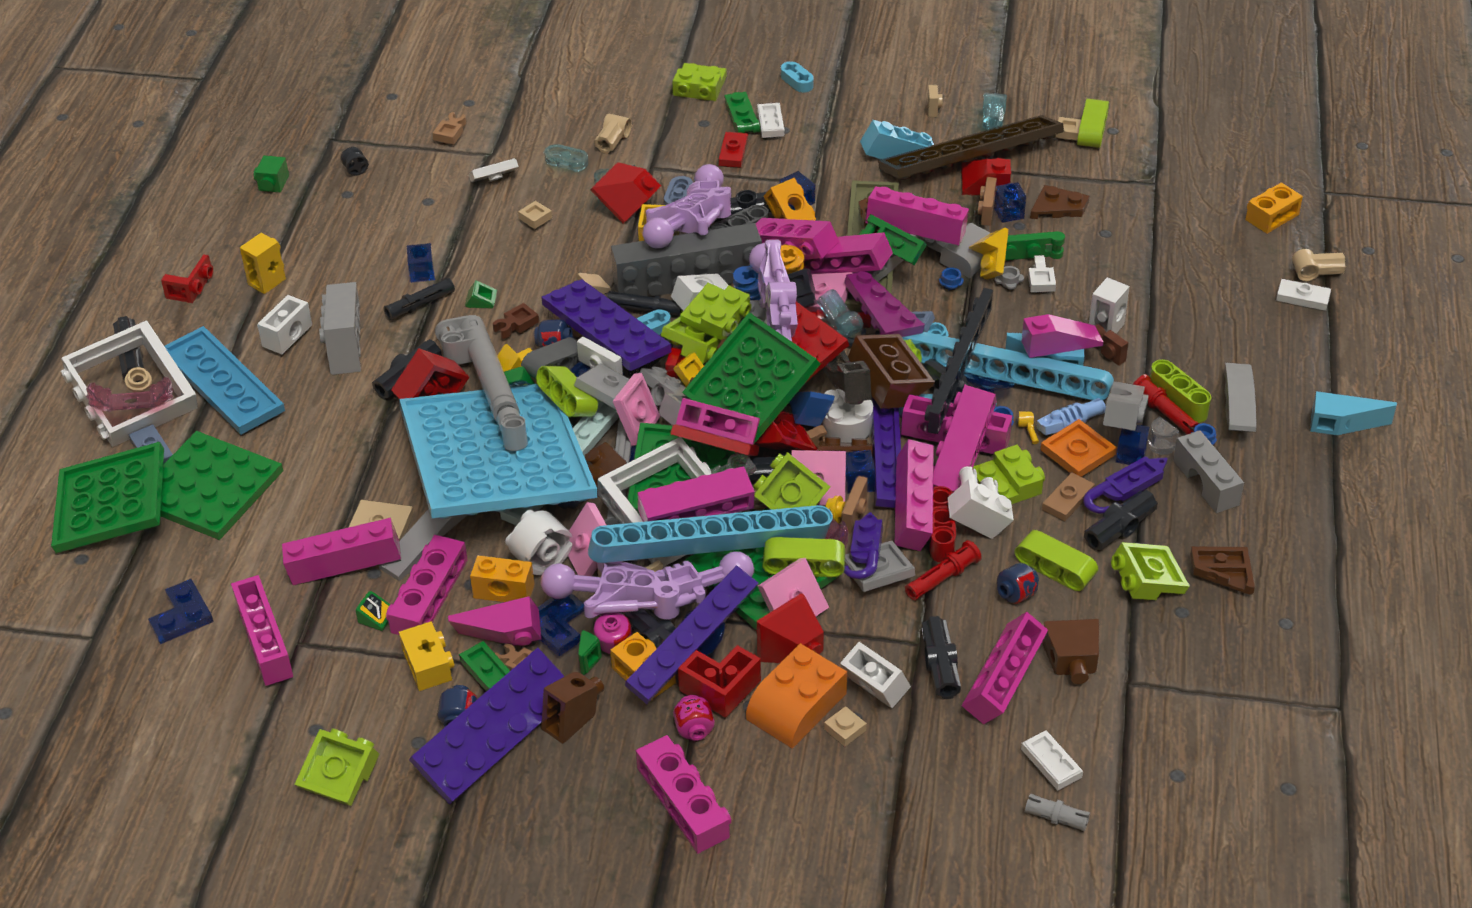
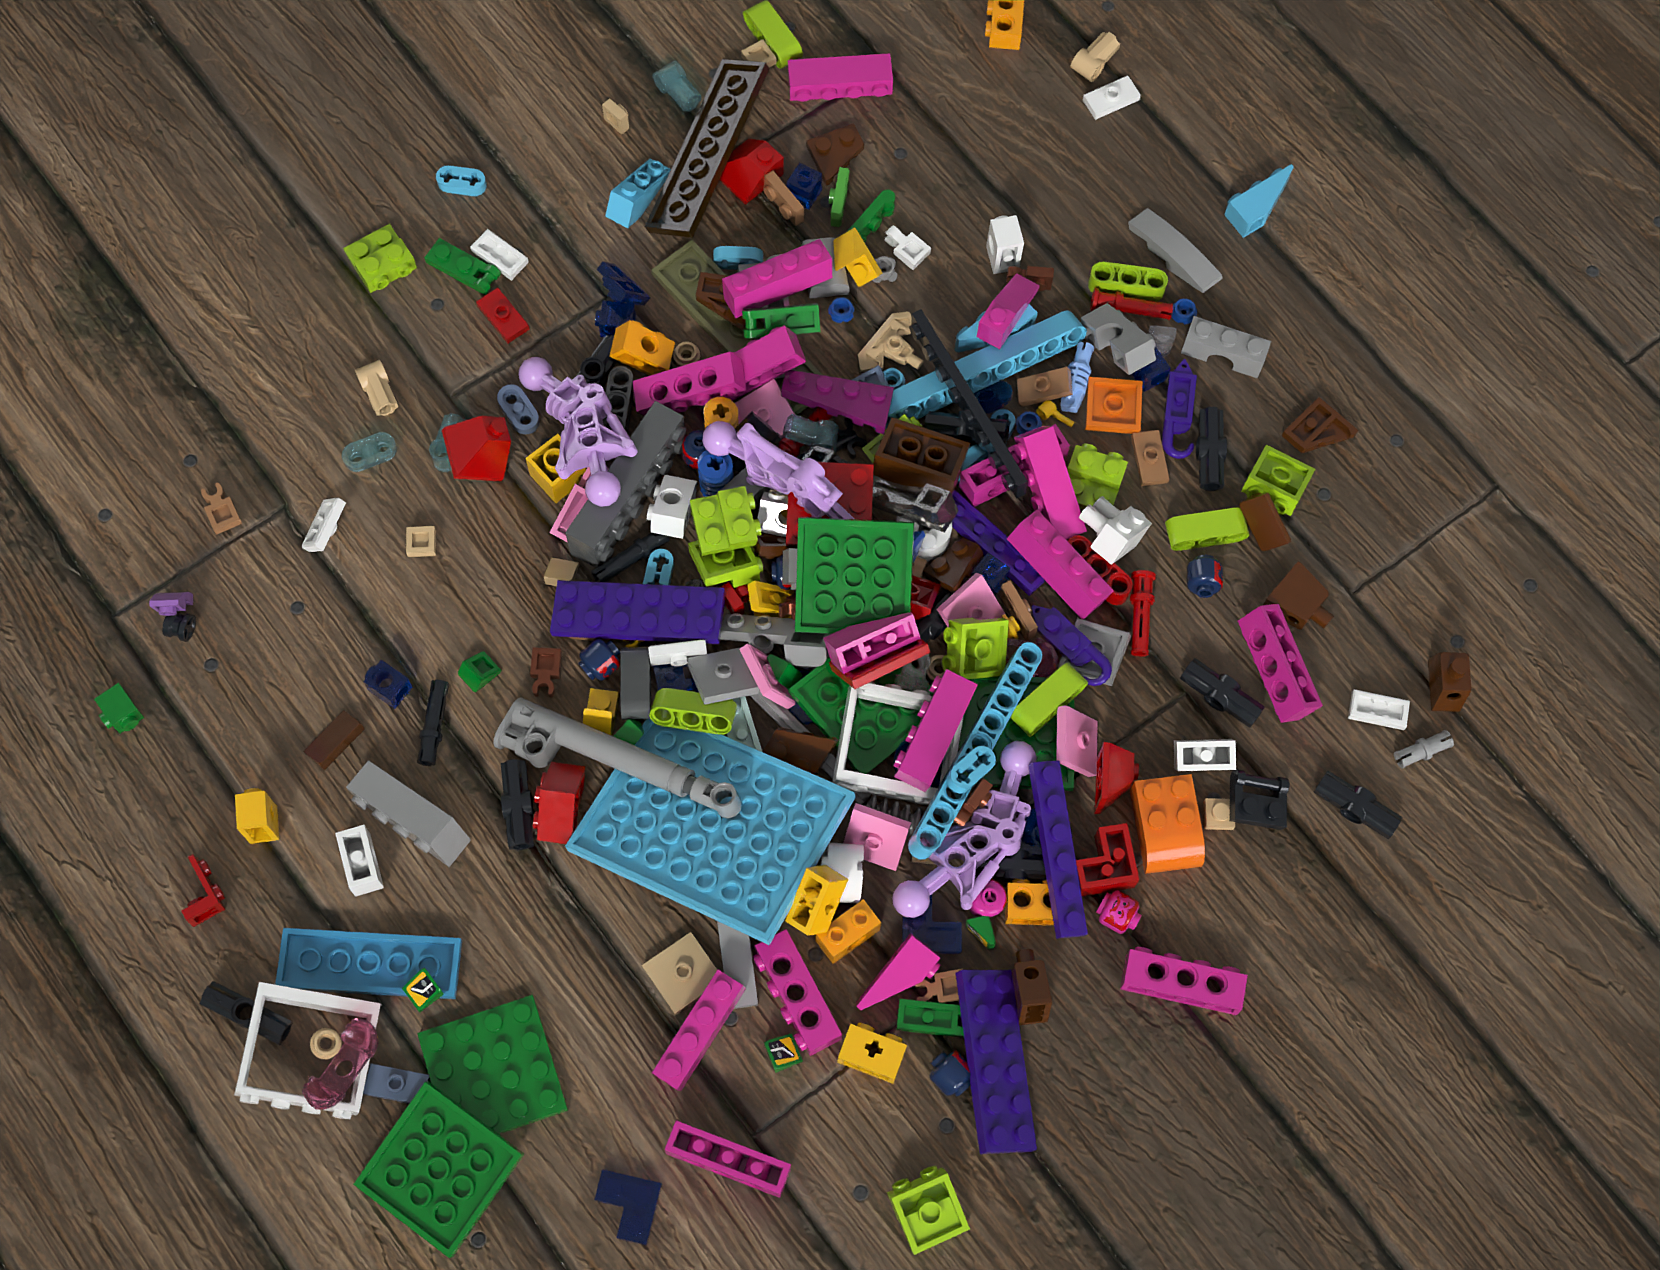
camera: 50 degrees left, 25 degrees up
(227, 406) = (422, 990): none -> slope
(357, 270) = (334, 740): none -> reddish brown slope
(364, 143) = (169, 603): none -> medium lavender slope
(495, 523) = (816, 900): none -> yellow brick
(651, 415) = (784, 671): none -> green slope
(669, 552) = (977, 797): none -> copper plate
(684, 526) = (975, 774): none -> medium azure beam
(822, 174) = (620, 286): none -> clear blue plate
(876, 742) = (1258, 809): none -> black plate
(955, 313) = (889, 344): none -> tan piece
(957, 801) = (1358, 805): none -> black piece
(1029, 221) = (838, 197): none -> bright green plate
(1038, 402) = (1044, 386): none -> medium nougat plate
(1102, 581) = (1264, 521): none -> reddish brown slope
(1111, 167) = (840, 77): none -> dark pink brick
(1137, 774) = (1449, 675): none -> reddish brown torso

